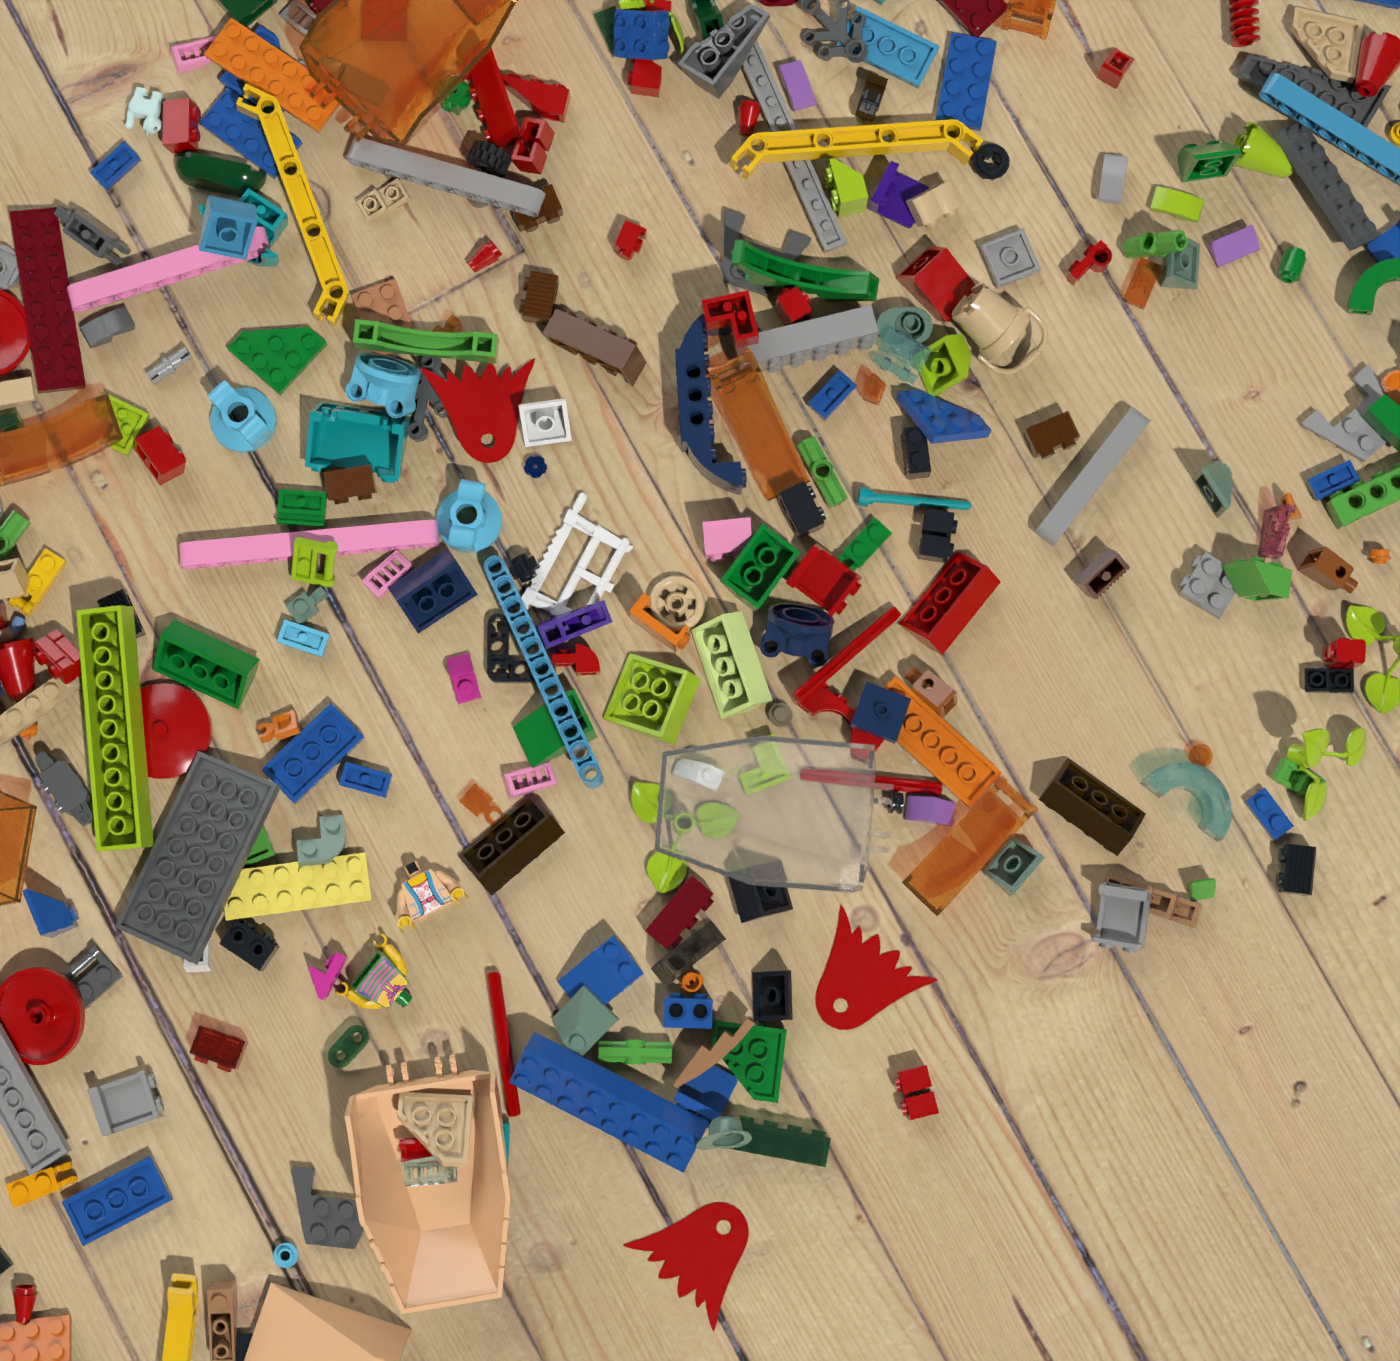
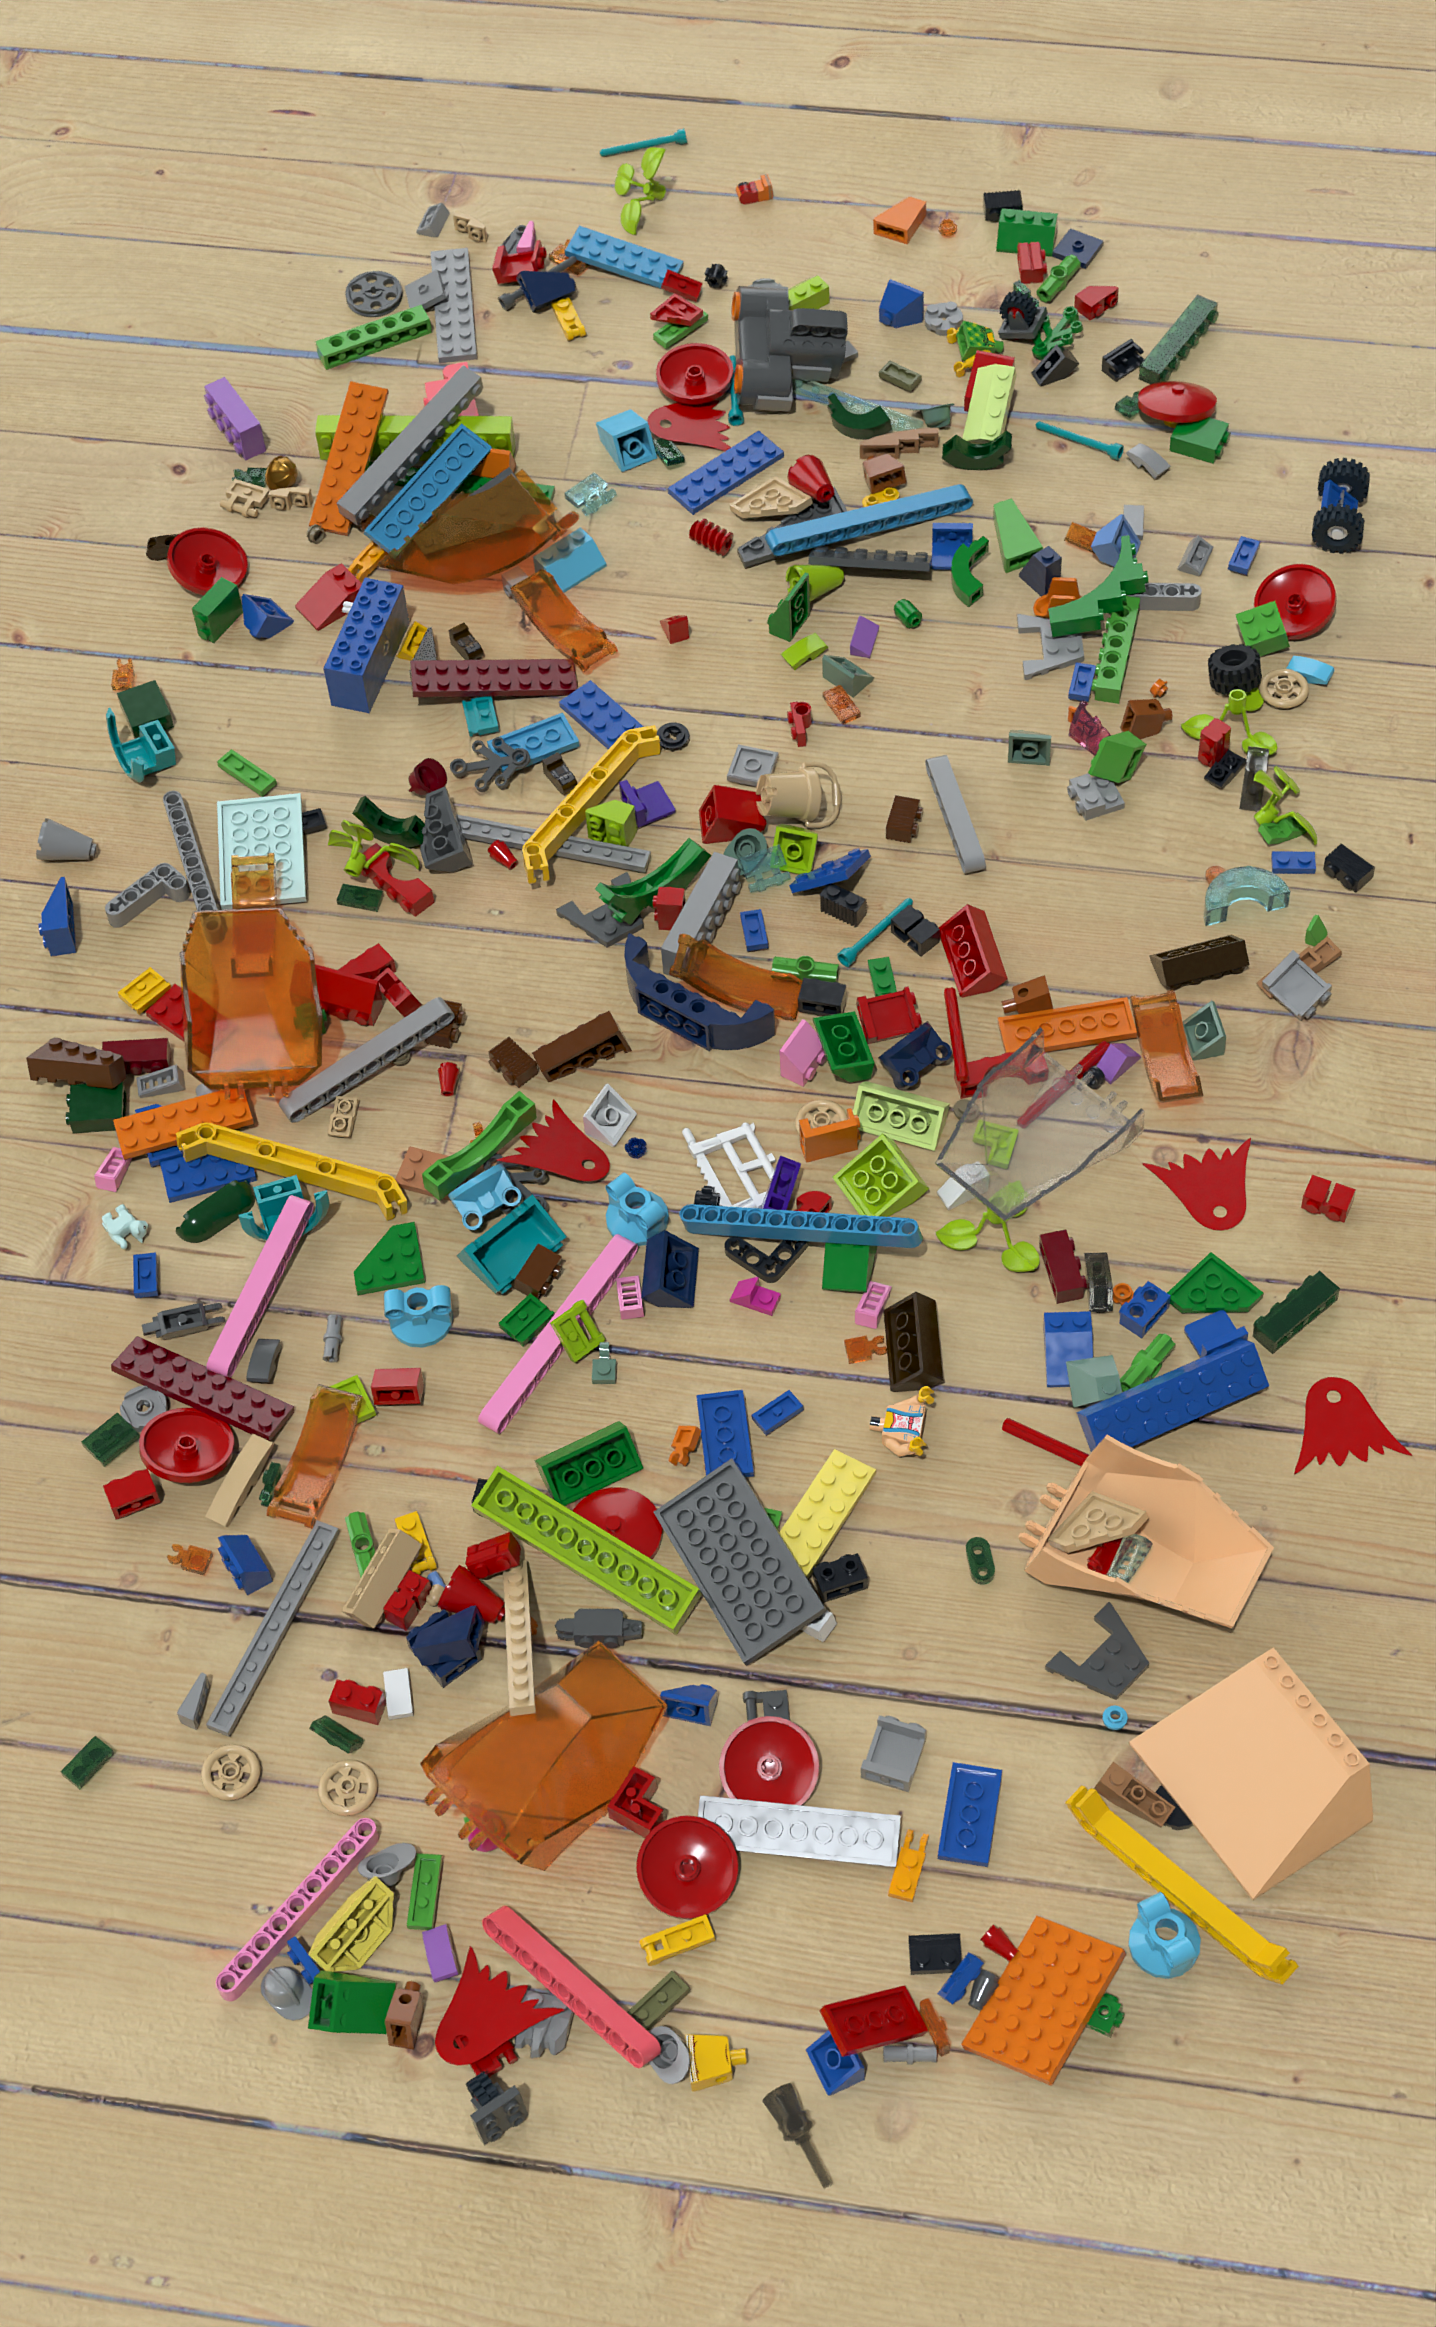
camera: 45 degrees left, 25 degrees down
(180, 125) = (159, 1208): brick -> none
(219, 1048) = (905, 1654): clear red brick -> none
(227, 227) = (275, 1206): dark azure slope -> none
(303, 638) = (628, 1383): medium azure plate -> none
(325, 848) = (806, 1467): sand green plate -> none
(325, 981) = (911, 1540): dark pink slope -> none
(380, 980) = (946, 1500): torso -> none
(489, 158) = (377, 1021): black tyre -> none
(630, 240) = (523, 980): red brick -> none
(641, 34) = (382, 872): blue bracket -> none
(708, 1057) = (1190, 1309): medium nougat slope -> none
(724, 1133) = (1263, 1329): sand green piece -> none
(732, 311) = (648, 927): red brick -> none
(759, 901) = (1089, 1205): black slope -> none
(772, 995) = (1178, 1243): black slope -> none
(797, 85) = (503, 809): medium lavender slope -> none
(874, 389) = (771, 904): clear orange slope -> none
(880, 712) = (1013, 1035): dark blue plate -> none
(934, 203) = (673, 782): tan brick -> none
(1101, 573) = (1031, 847): reddish brown brick -> none
(1112, 179) = (753, 674): light grey slope -> none
(1155, 244) = (819, 679): bright green piece -> none
(1338, 713) = (1253, 791): none -> clear smoke slope

